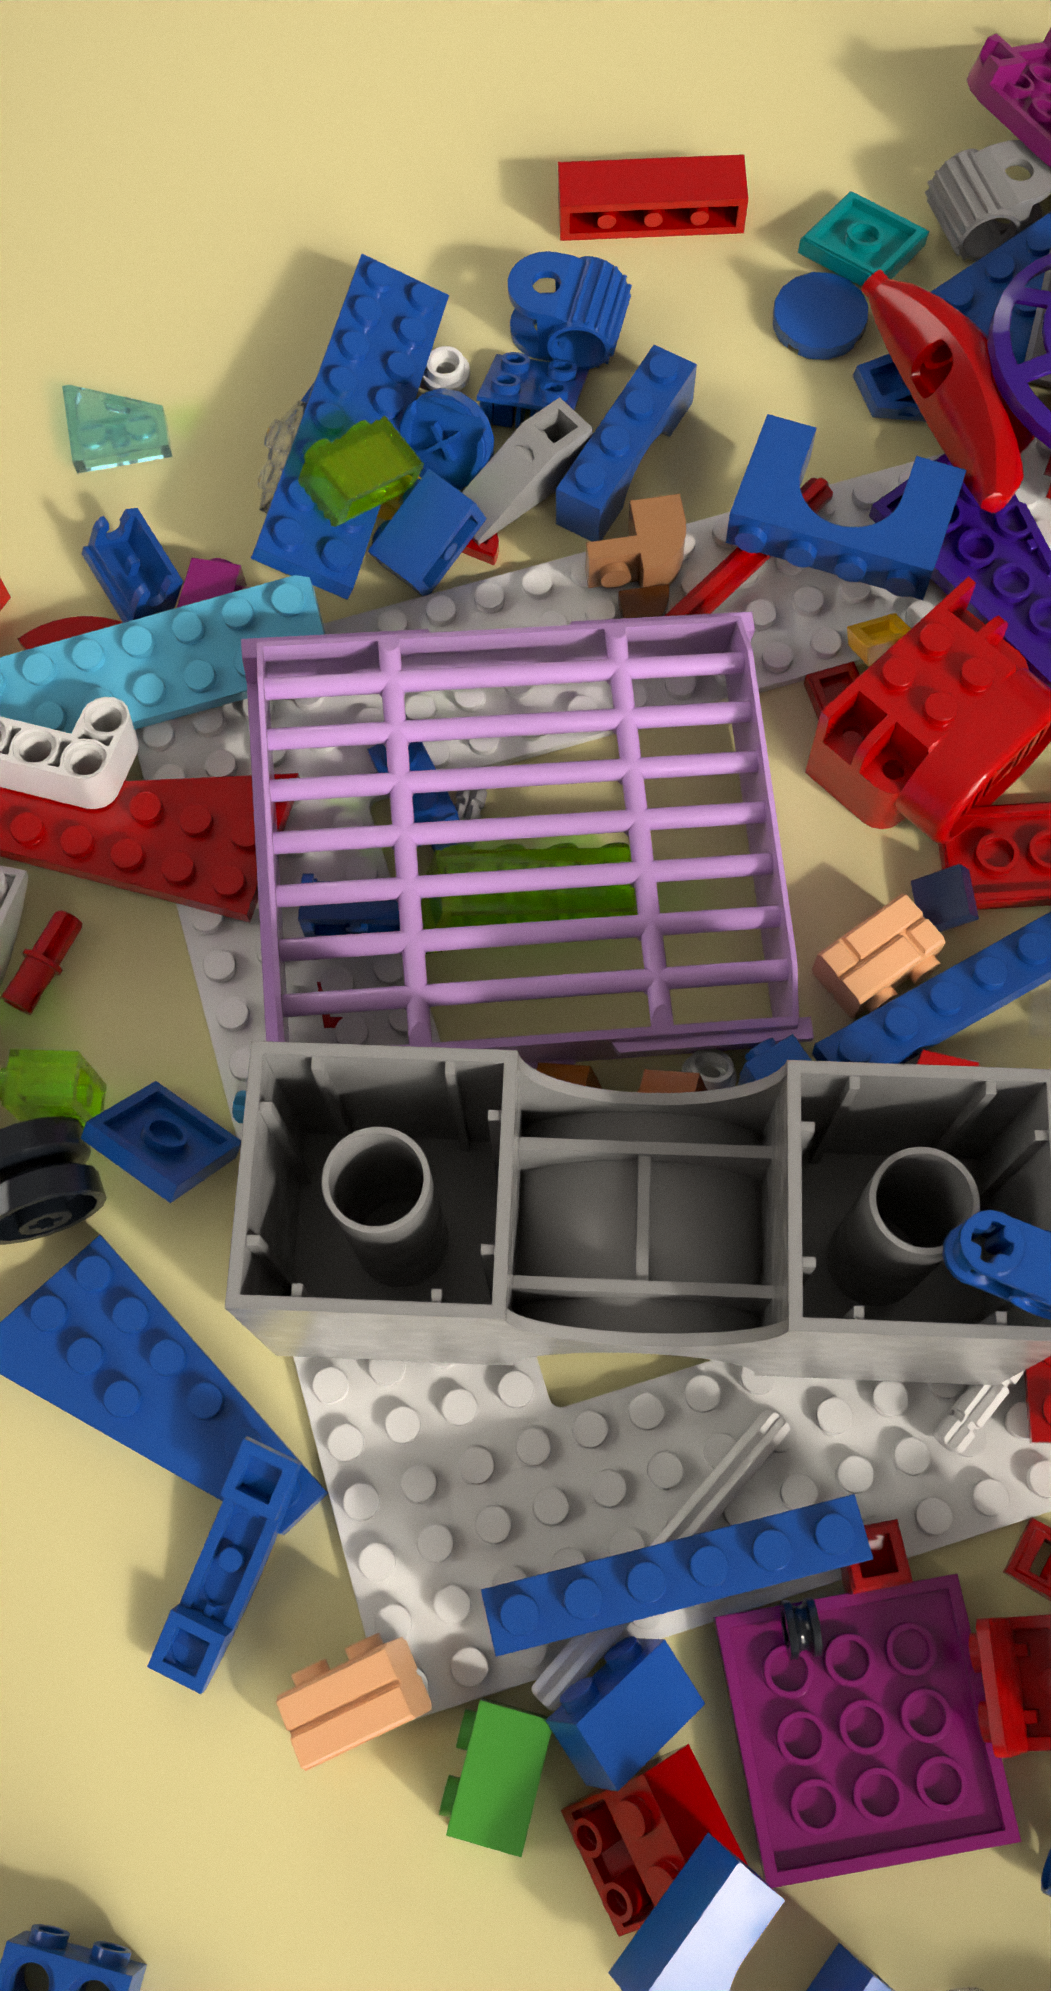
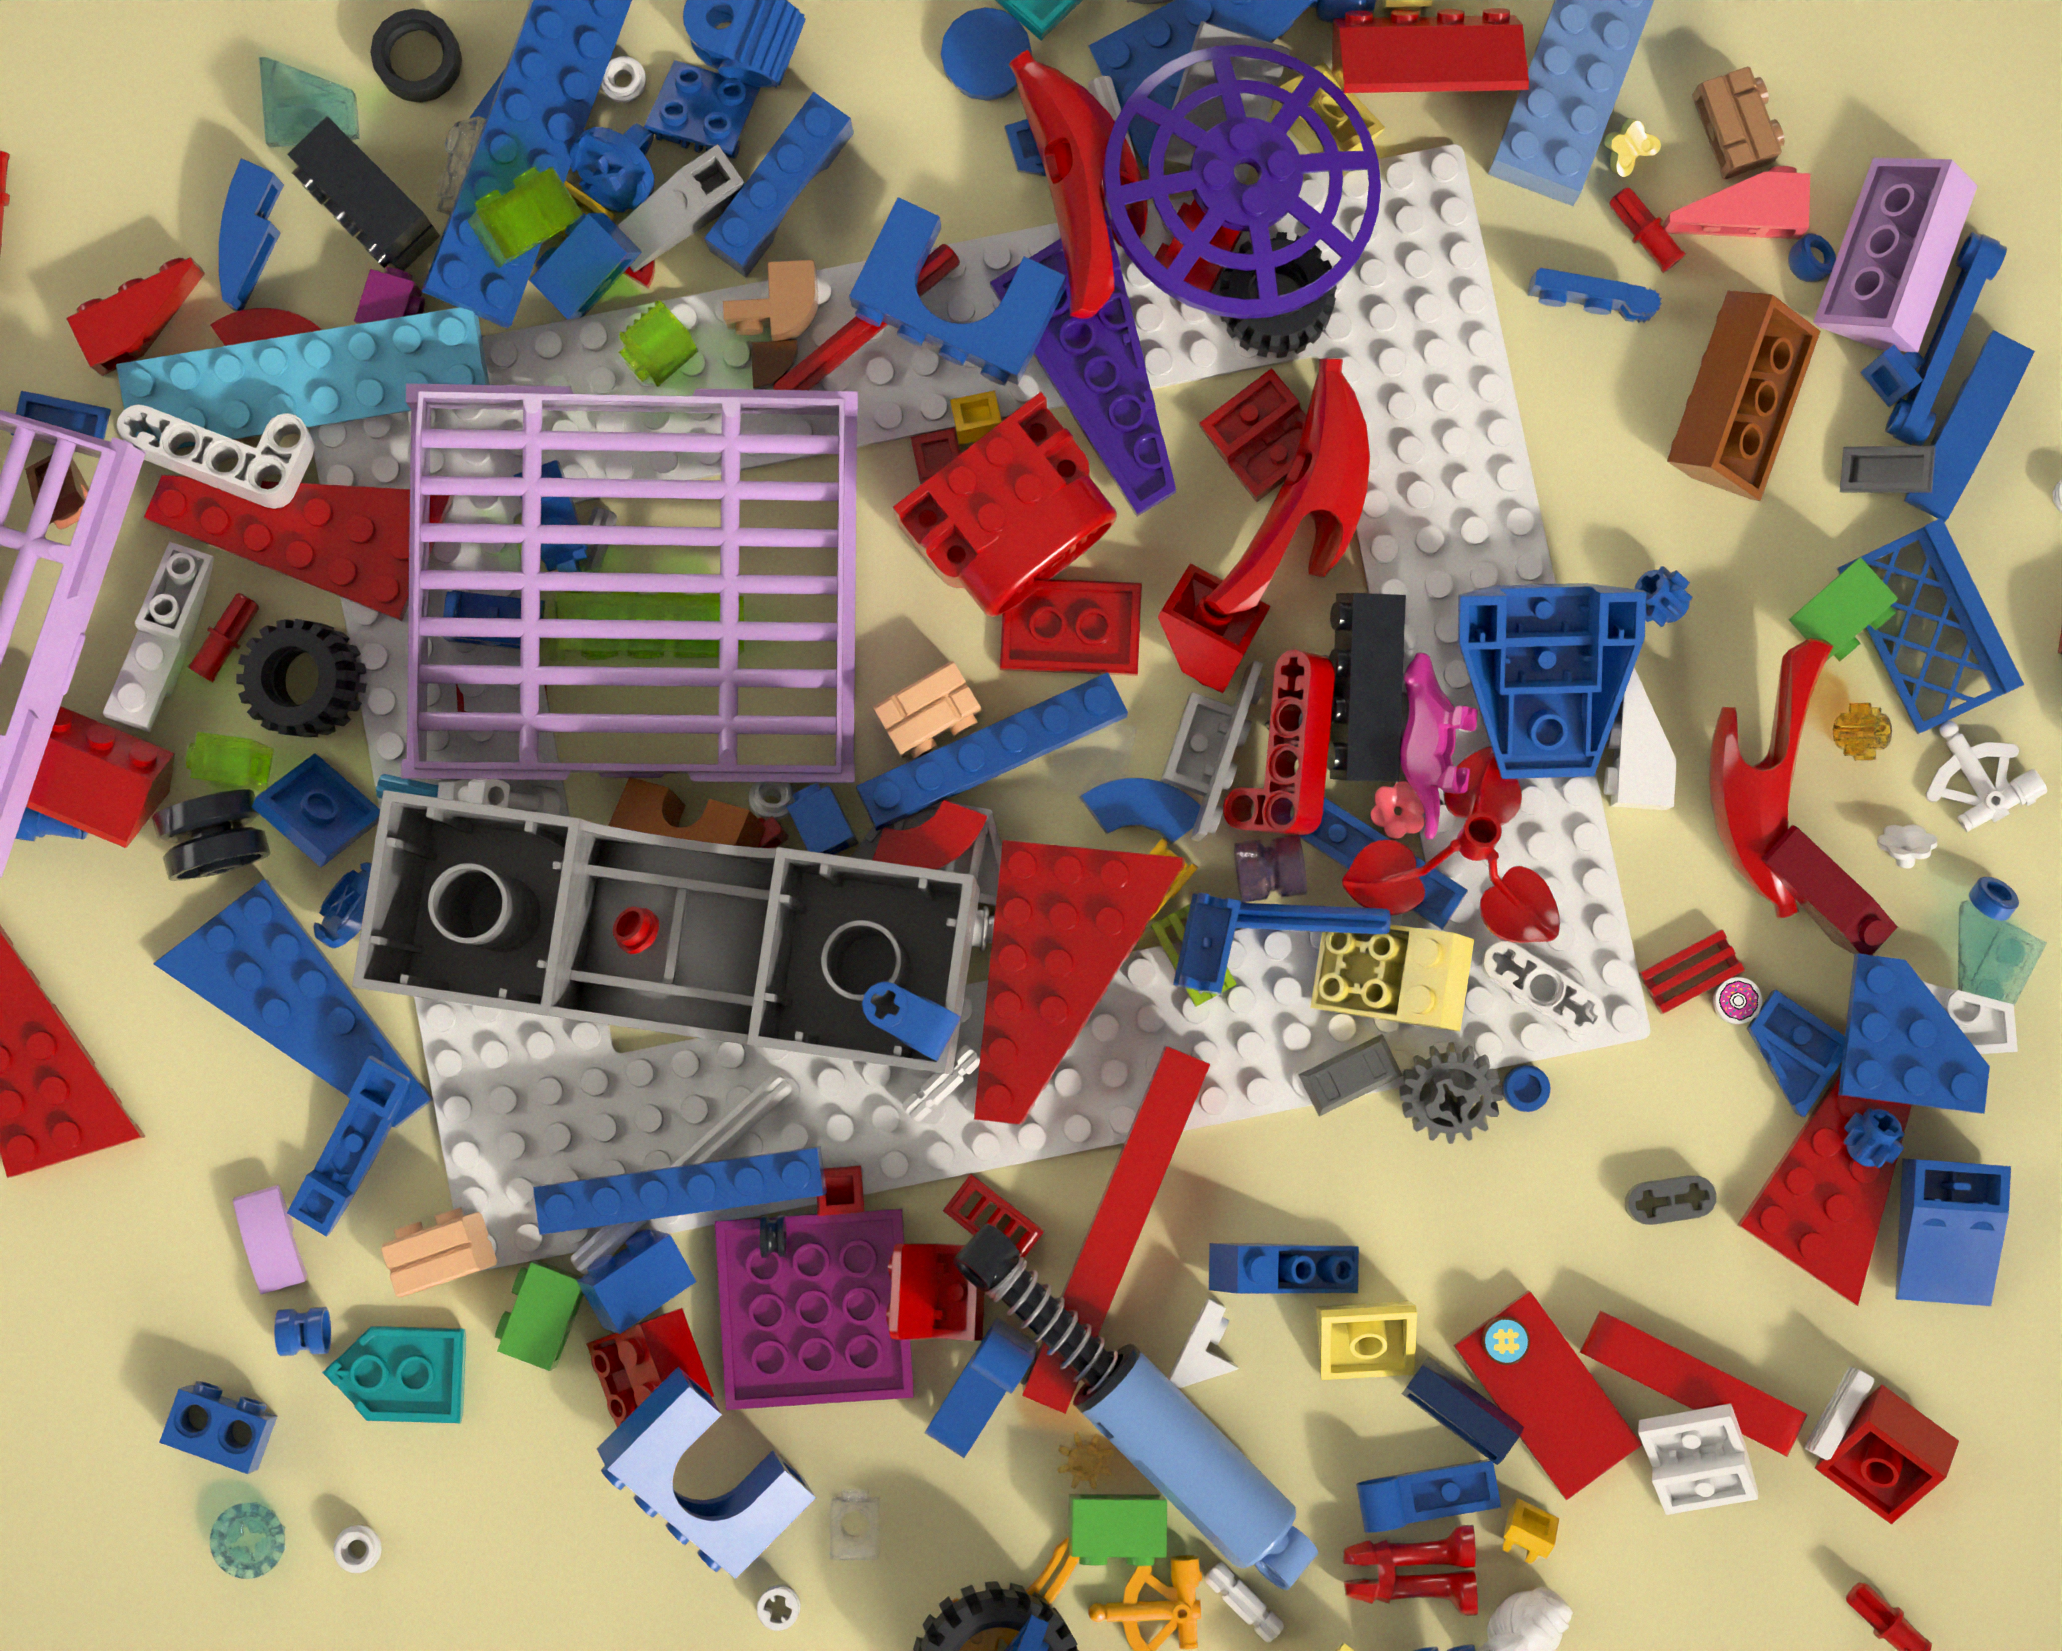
camera: 10 degrees right, 15 degrees up
(55, 541) = (245, 232): none -> blue slope
(104, 966) = (266, 678): none -> black tyre
(125, 1707) = (269, 1239): none -> lavender slope
(132, 567) = (316, 269): blue hinge -> none
(176, 1835) = (302, 1331): none -> blue wheel
(179, 485) = (361, 196): none -> black piece
(202, 1256) = (344, 908): none -> blue tile
(220, 339) = (396, 27): none -> black tyre
(317, 1884) = (404, 1374): none -> teal tile
(520, 584) = (656, 345): none -> clear neon green brick
(591, 1214) = (635, 929): none -> red plate
(946, 897) = (993, 664): dark blue tile -> none

